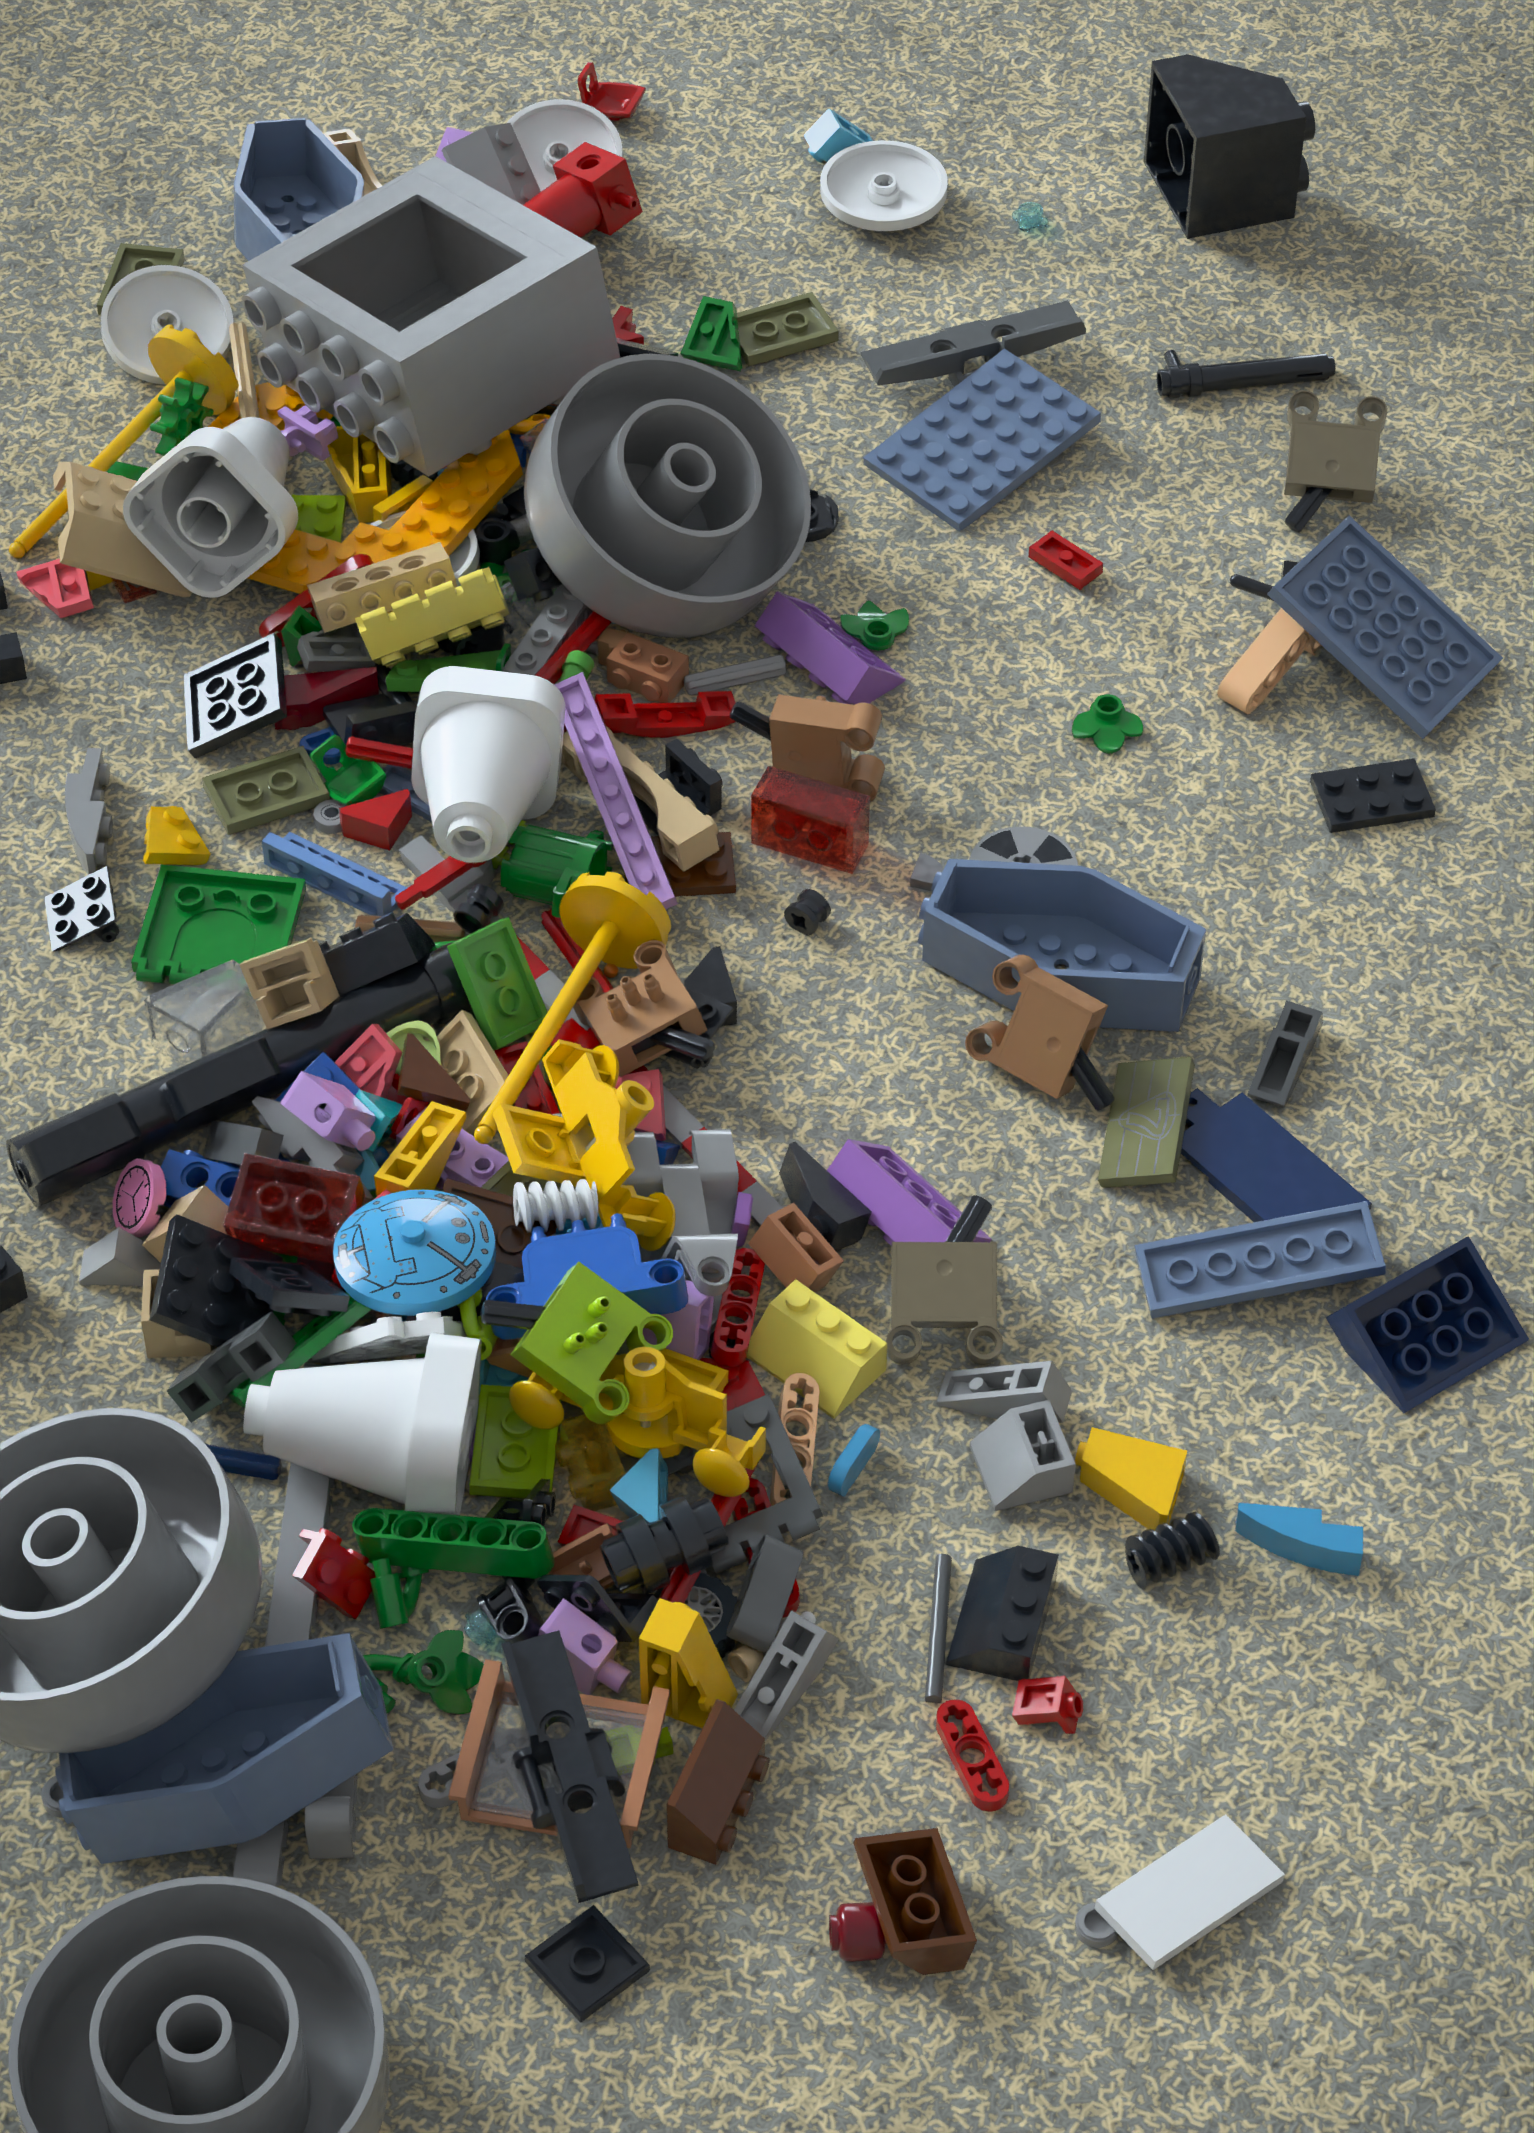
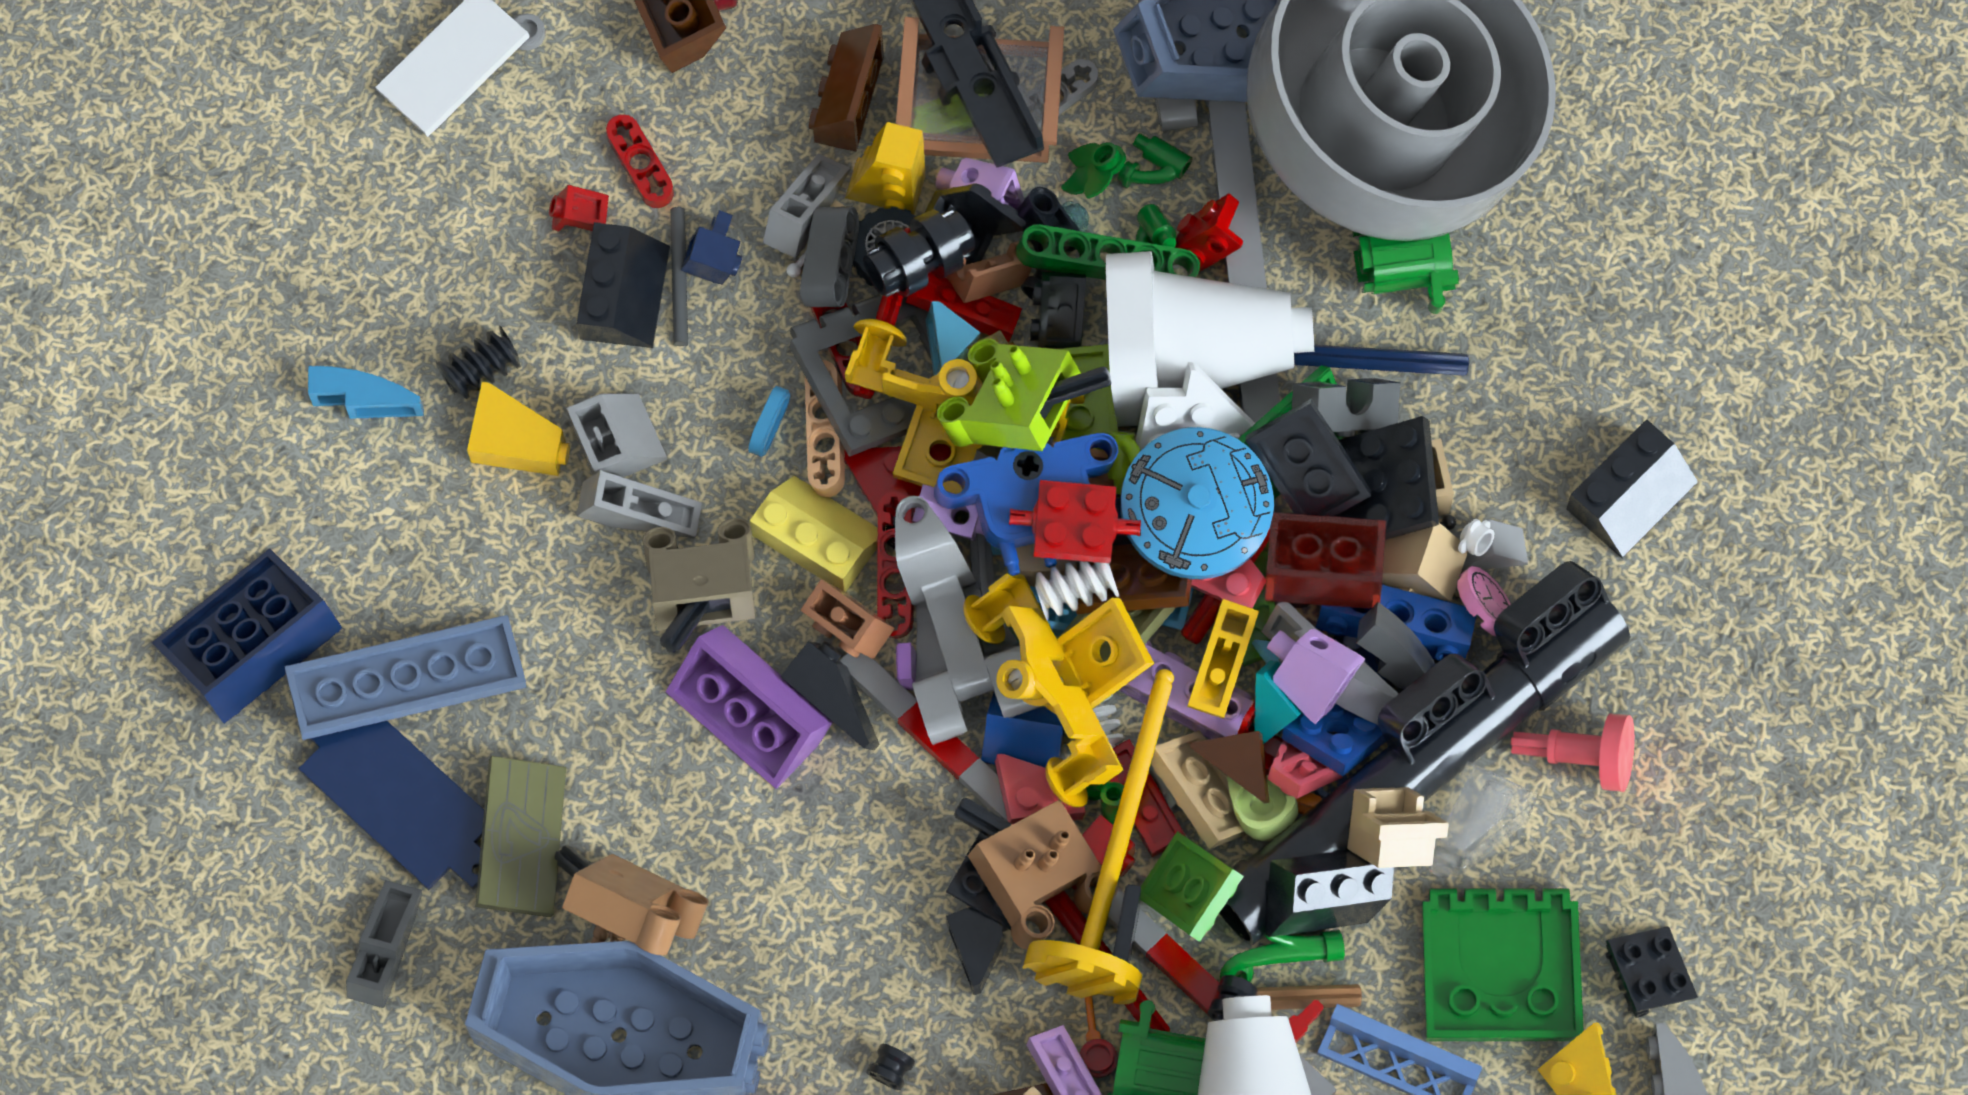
camera: 175 degrees right, 20 degrees up
(60, 1059) = (1610, 752): none -> coral piece
(132, 1234) = (1476, 537): none -> white plate
(546, 1226) = (1074, 521): none -> red plate
(566, 947) = (1127, 923): none -> black tile
(898, 1630) = (712, 253): none -> dark blue brick

